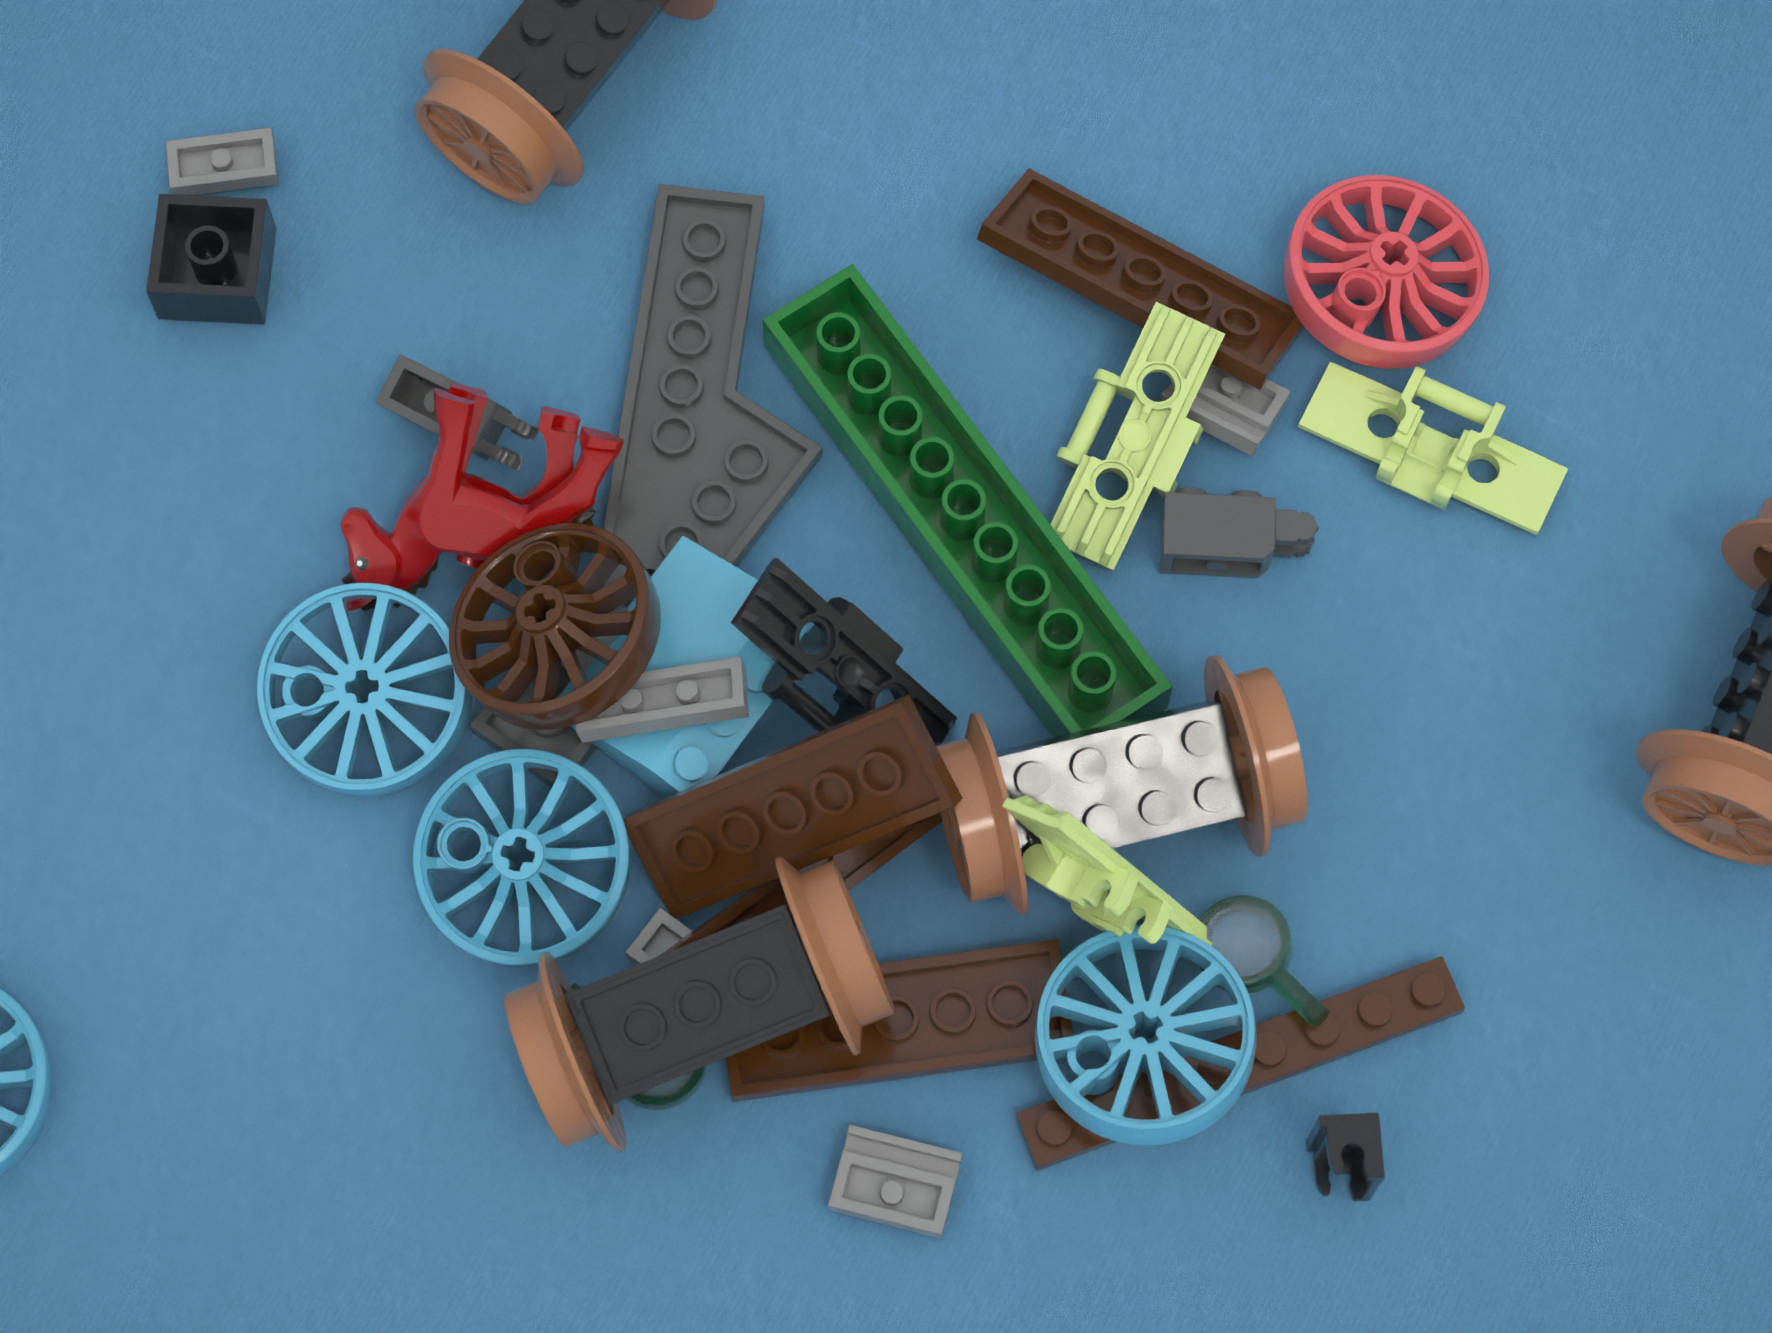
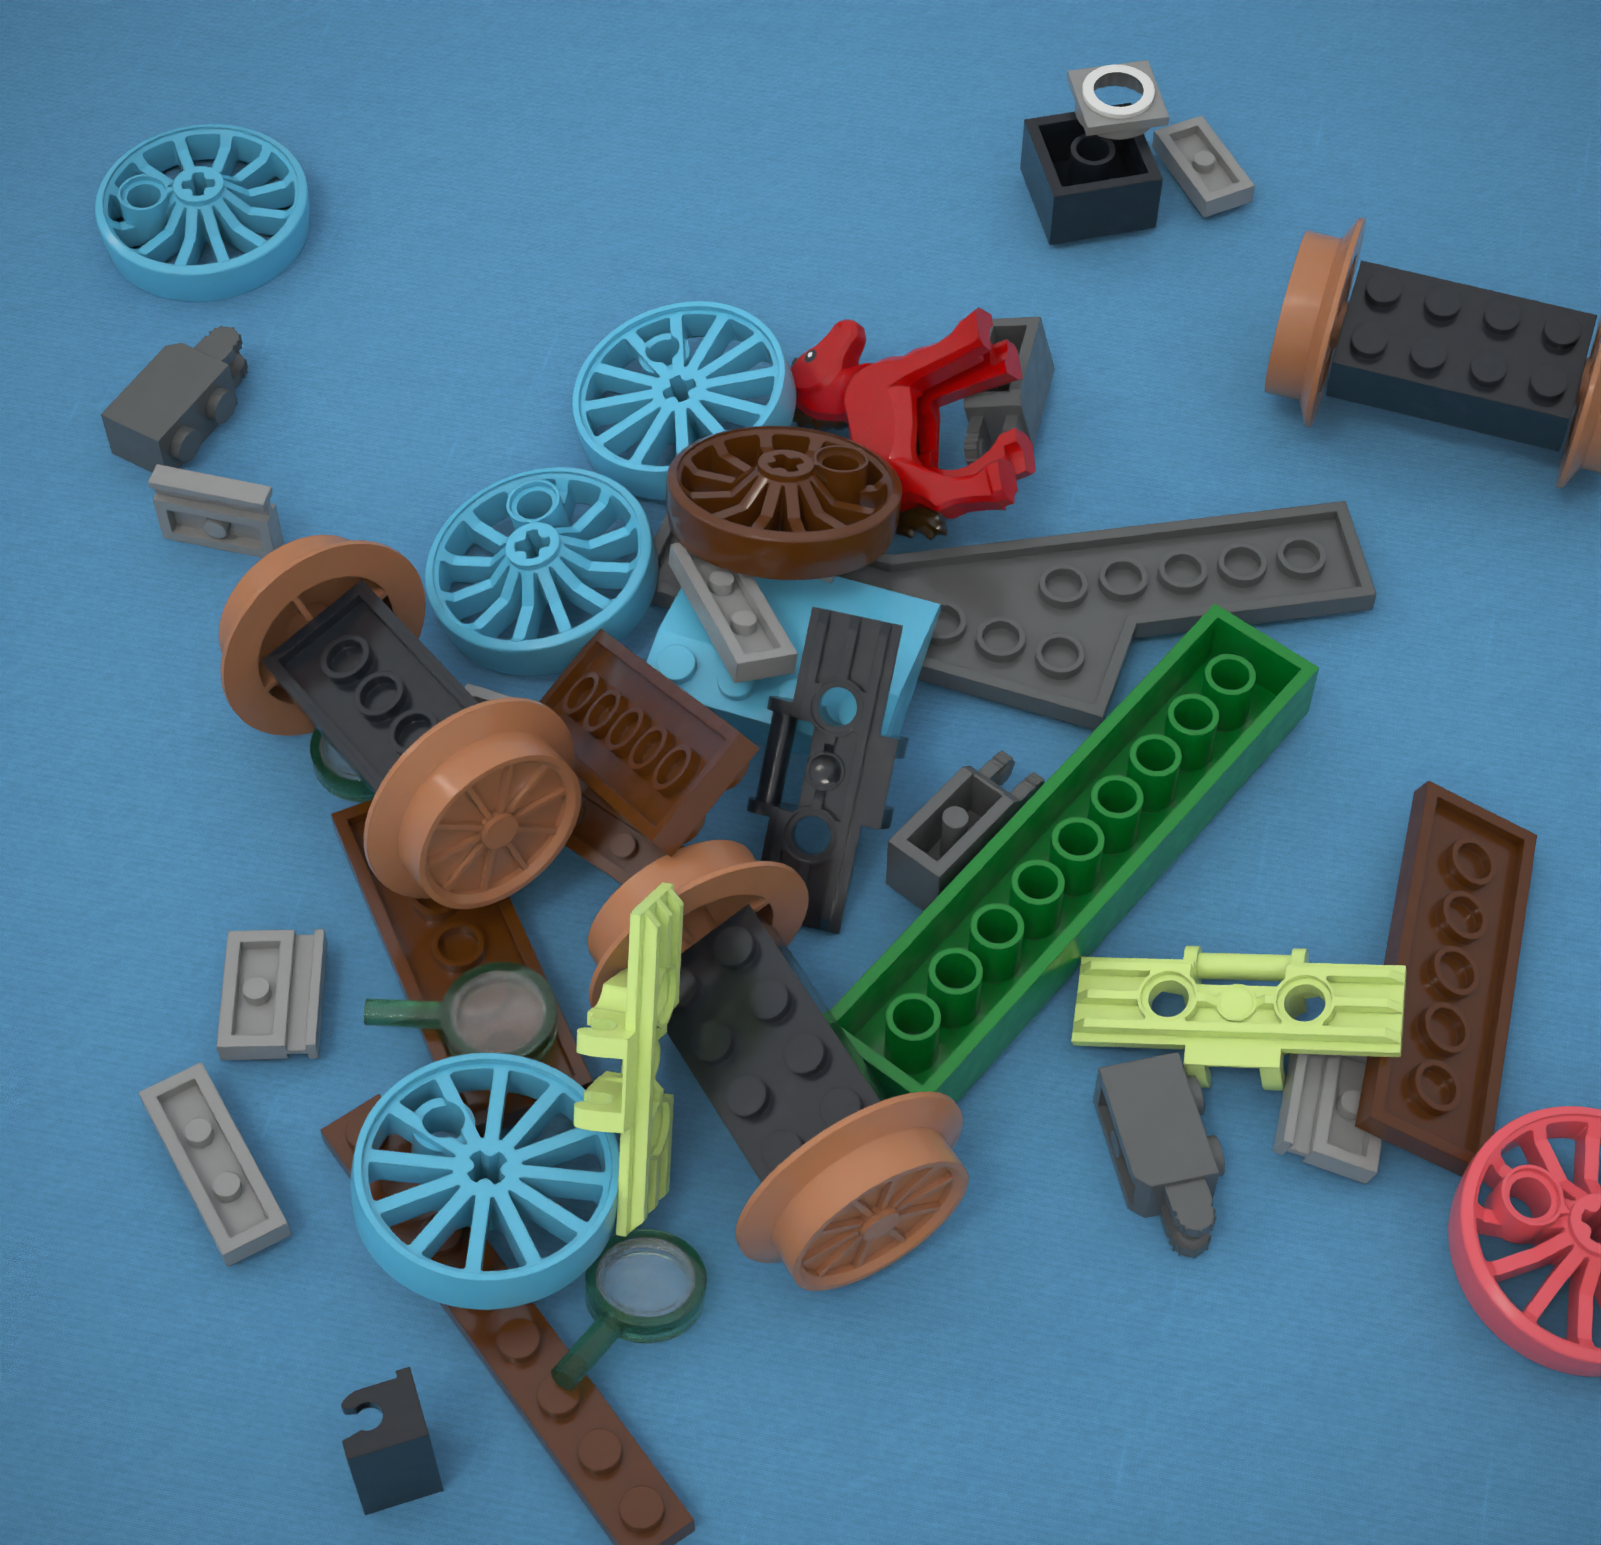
camera: 75 degrees right, 15 degrees down
(178, 228) = (1114, 121): none -> light grey piece
(197, 1151) = (177, 401): none -> dark grey hinge
(358, 1134) = (215, 511): none -> light grey plate
(909, 590) = (954, 828): none -> dark grey hinge
(983, 1002) = (484, 1011): none -> piece
(1045, 1257) = (215, 1164): none -> light grey plate
(1426, 460) = (1354, 1365): yellowish green piece -> none

